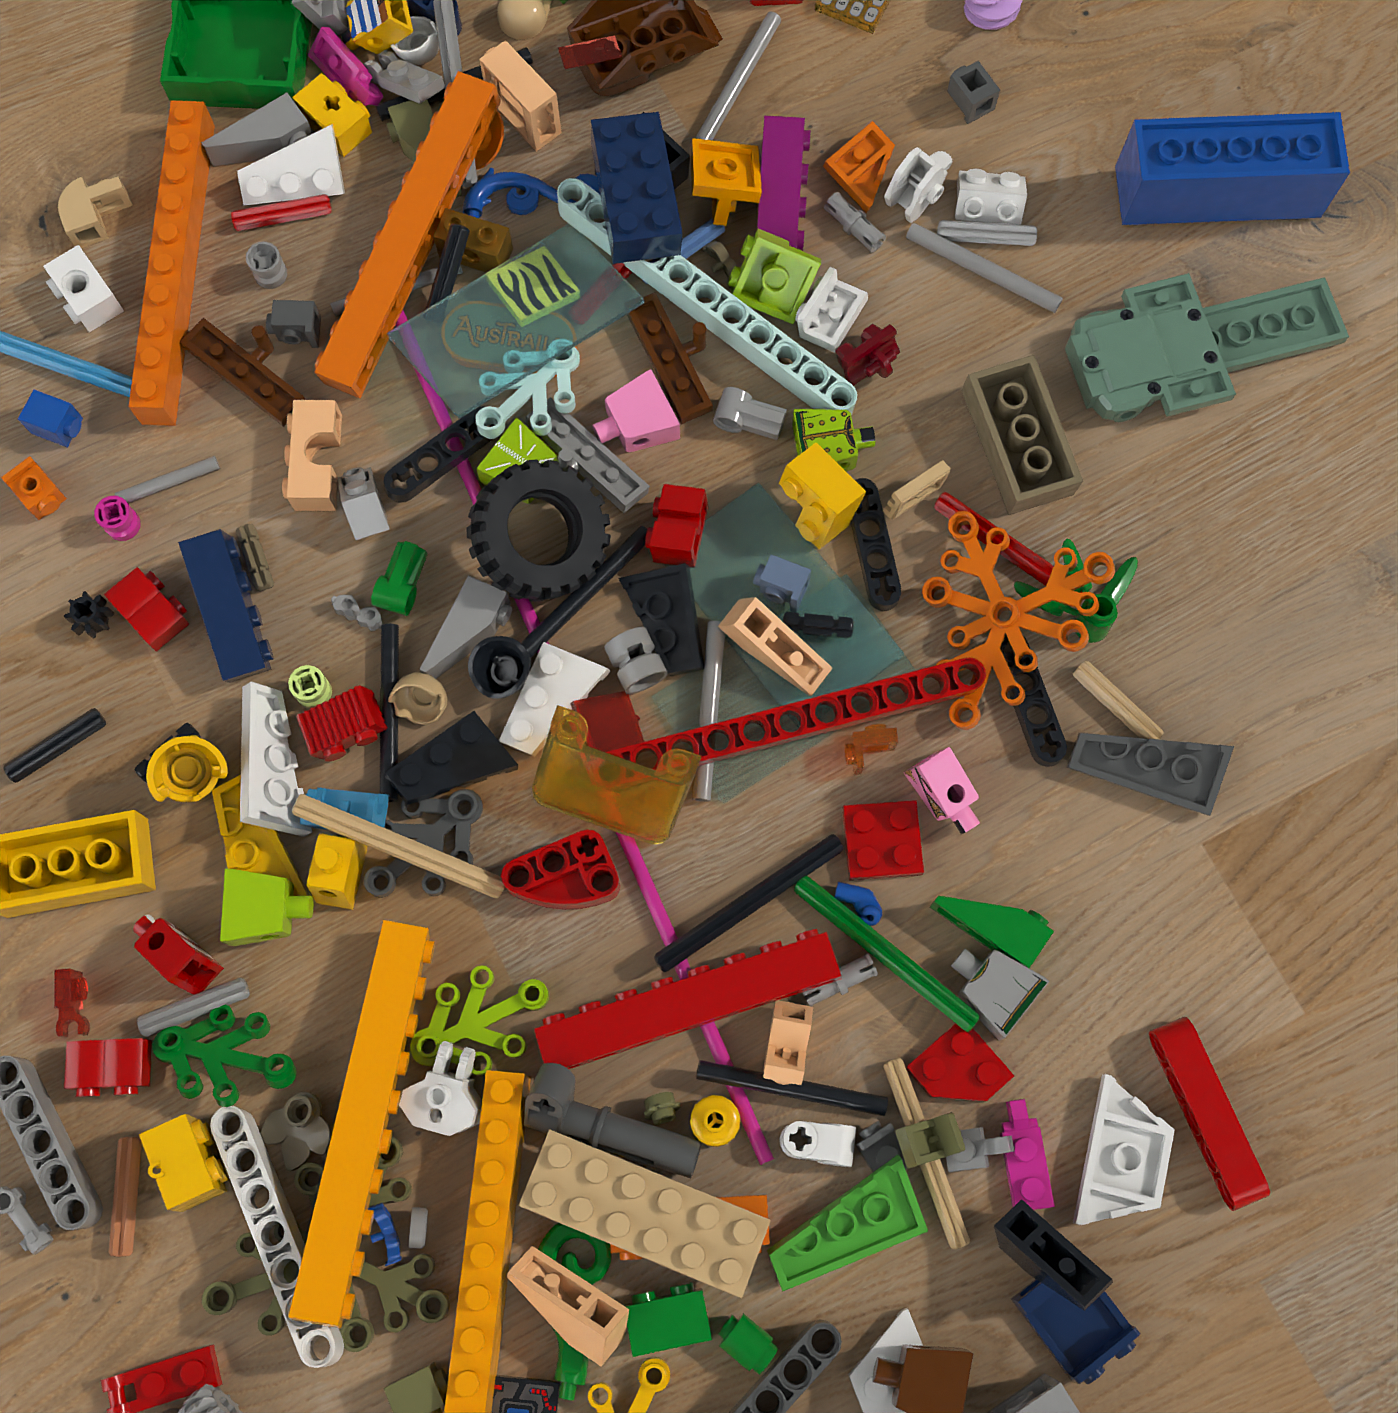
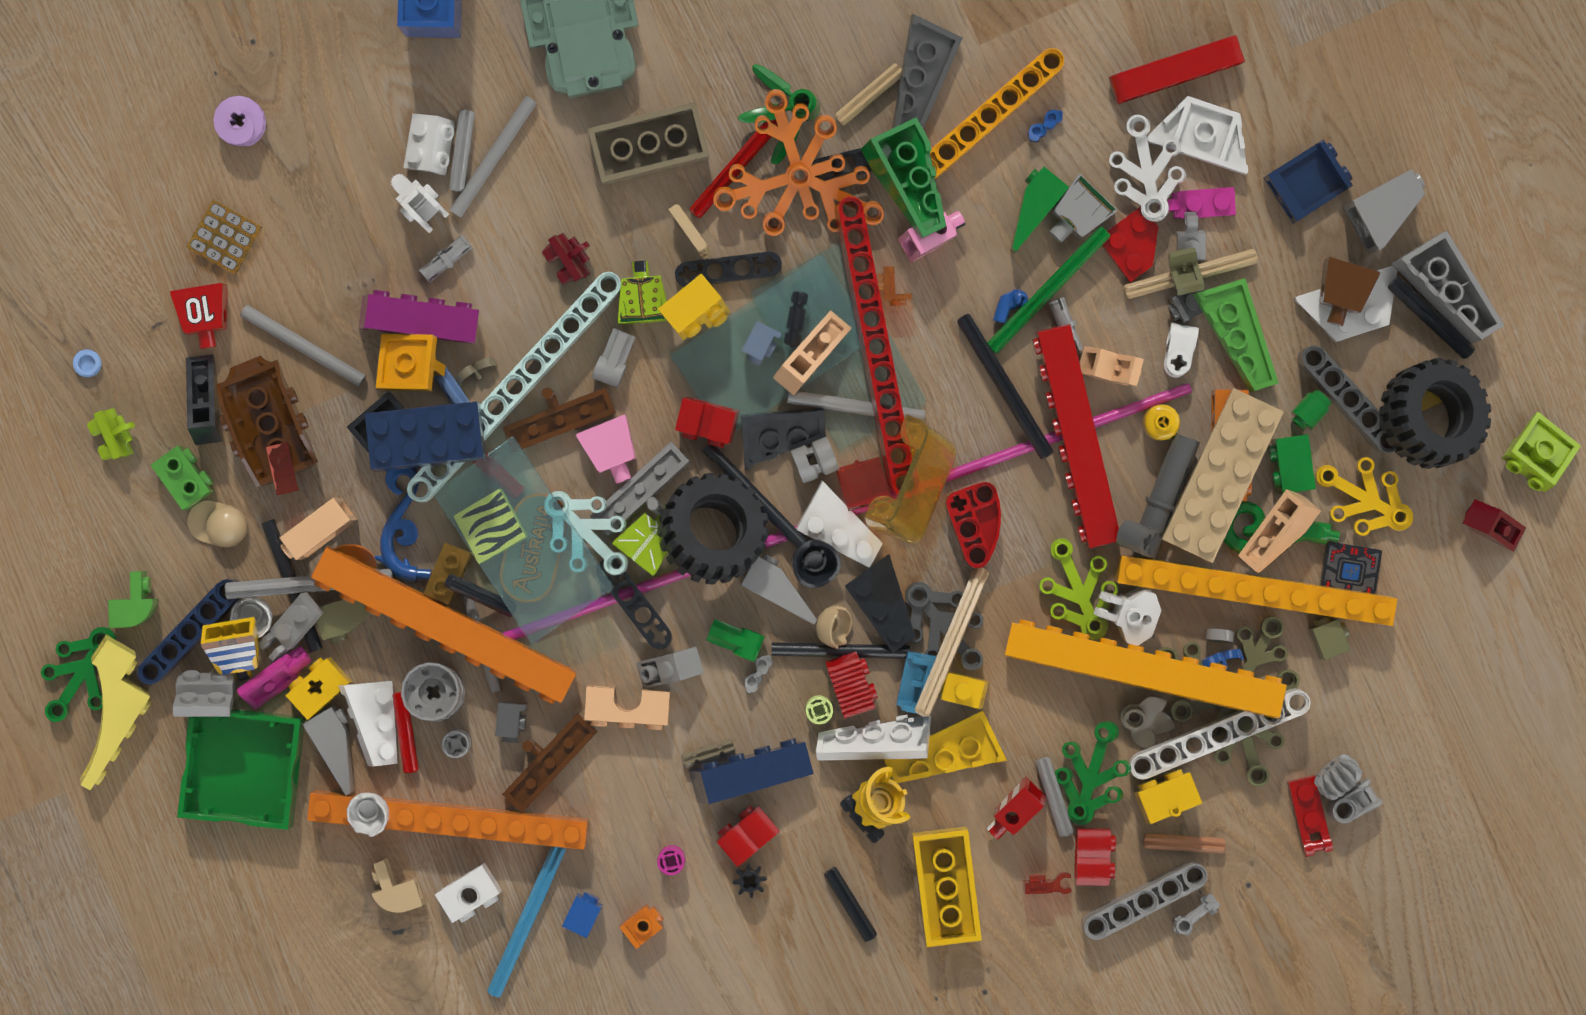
camera: 85 degrees left, 15 degrees up
(169, 480) = (638, 823): light grey bar -> none
(173, 152) = (368, 813): none -> white hair
(259, 907) = (989, 744): lime torso -> none
(326, 228) = (417, 693): none -> light grey wheel
(661, 1108) = (1148, 460): olive plate -> none
(773, 275) = (499, 331): lime plate -> none
(807, 1091) = (1144, 352): black piece -> none
(829, 311) = (528, 285): white bracket -> none
(861, 164) = (393, 248): orange wing -> none
(882, 840) = (963, 283): red plate -> none
(973, 91) = (333, 138): dark grey brick -> none
(1026, 745) = (905, 170): none -> green wedge
(1050, 1256) = (1270, 196): black slope -> none
(1063, 1080) = (1148, 173): none -> white plant
(1112, 942) = (1040, 130): none -> blue piece
(1128, 860) = (998, 107): none -> light orange beam

